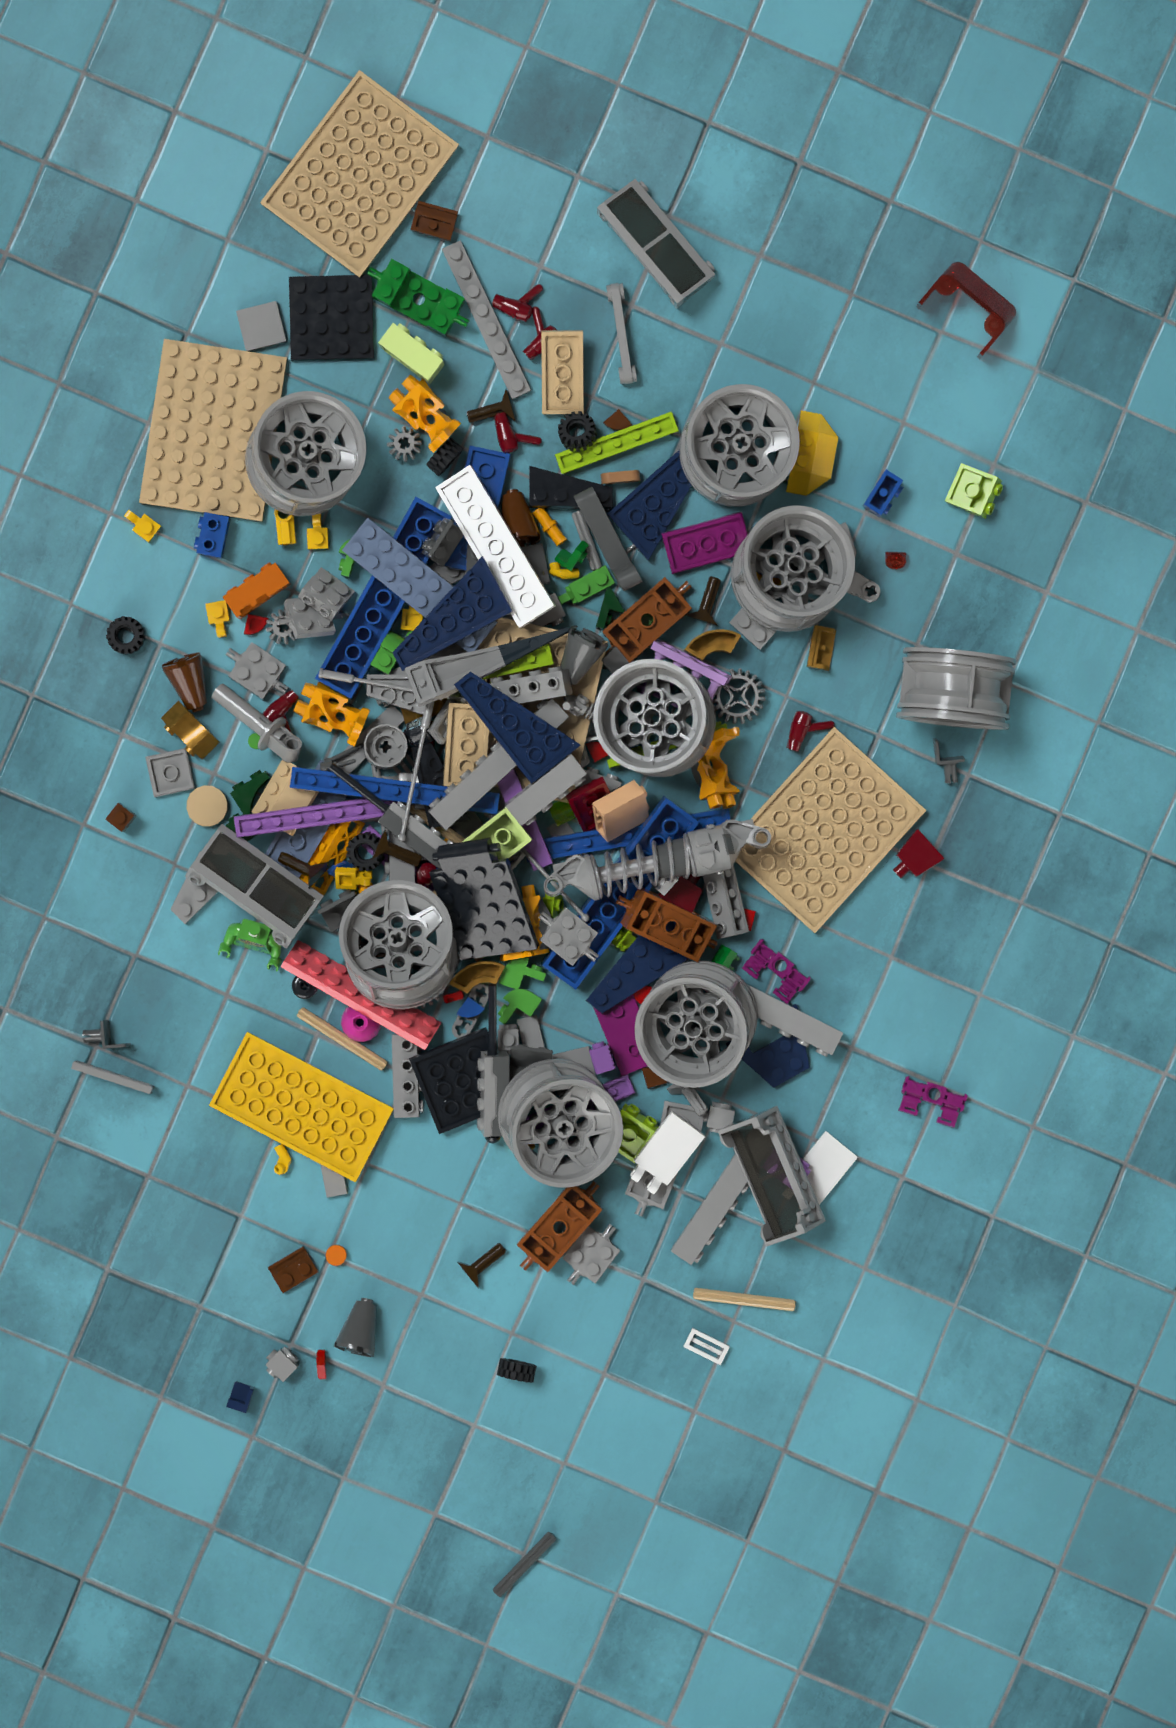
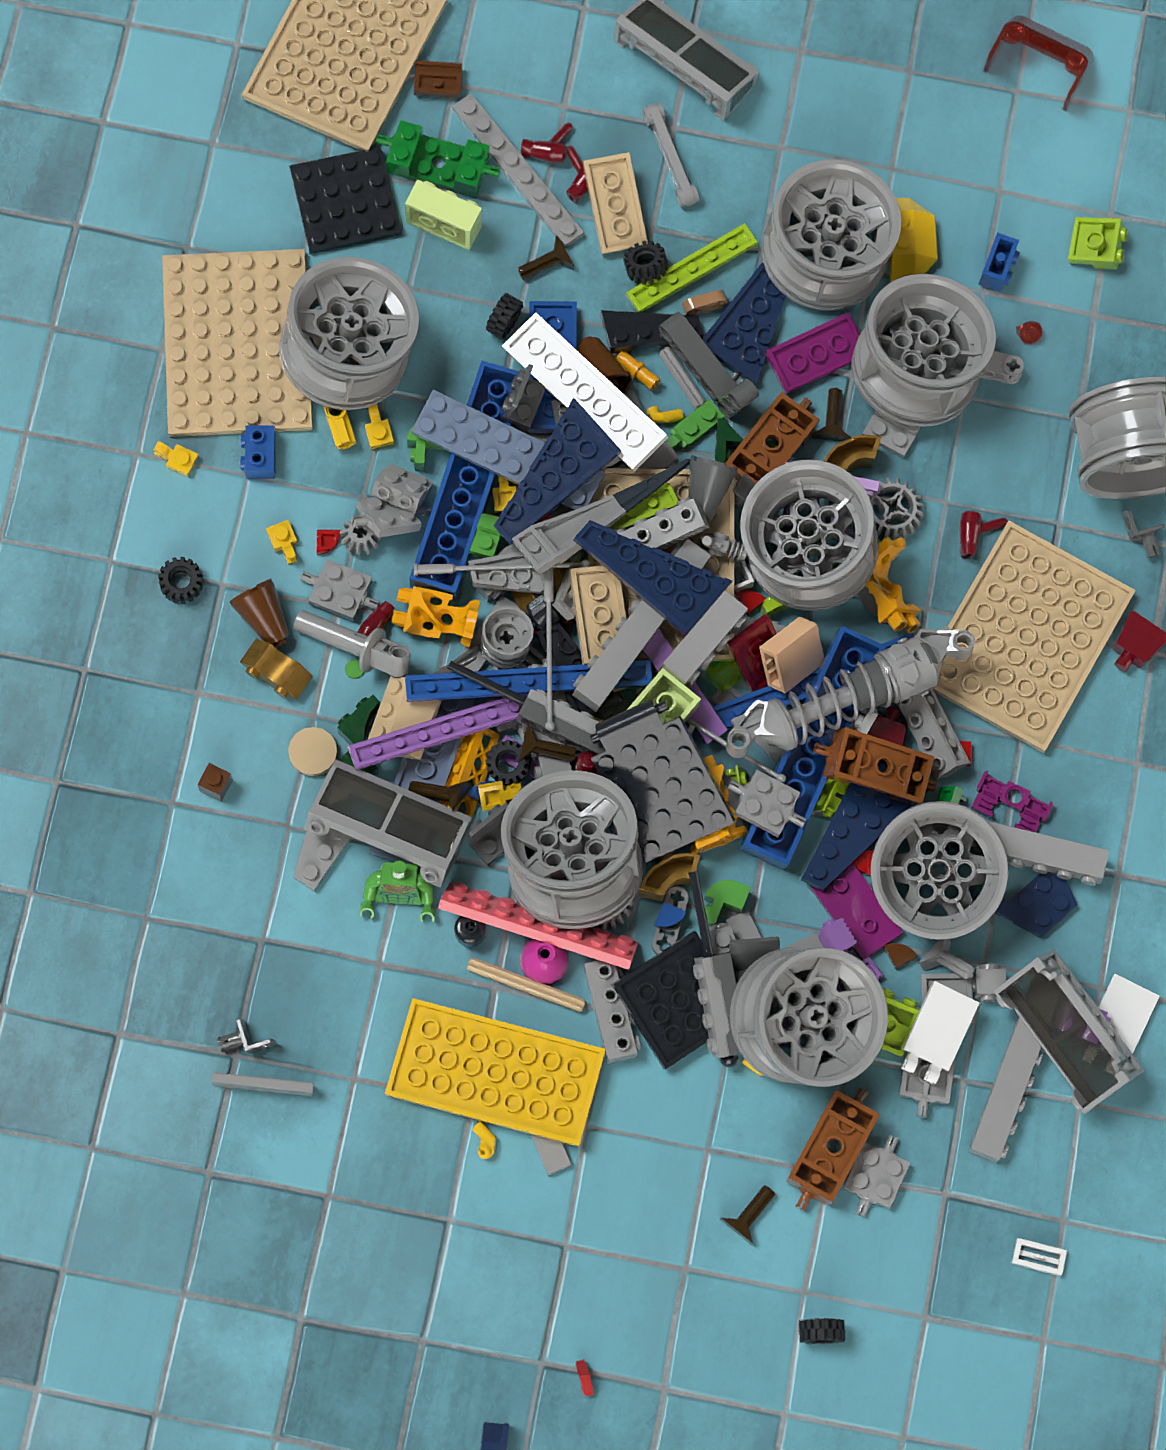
camera: 15 degrees left, 15 degrees down
(170, 772) = (262, 723): light grey tile -> none
(256, 590) = (321, 501): orange wedge -> none
(261, 326) = (269, 223): light grey tile -> none
(281, 1363) = (536, 1386): light grey brick -> none
(293, 1269) = (525, 1270): reddish brown plate -> none
(336, 1255) = (573, 1241): orange tile -> none
(359, 1329) = (621, 1325): dark grey cone -> none
(397, 446) = (455, 305): light grey gear -> none
(417, 401) = (459, 265): light orange hips -> none
(453, 997) = (646, 908): red tile -> none
(507, 438) = (568, 285): dark red piece -> none
(516, 969) = (714, 860): bright green brick -> none
(570, 560) = (677, 392): green bracket -> none
(617, 421) = (686, 246): reddish brown tile -> none
(744, 1299) = (1069, 1191): tan axle -> none
(821, 647) = (971, 440): pearl gold hinge -> none

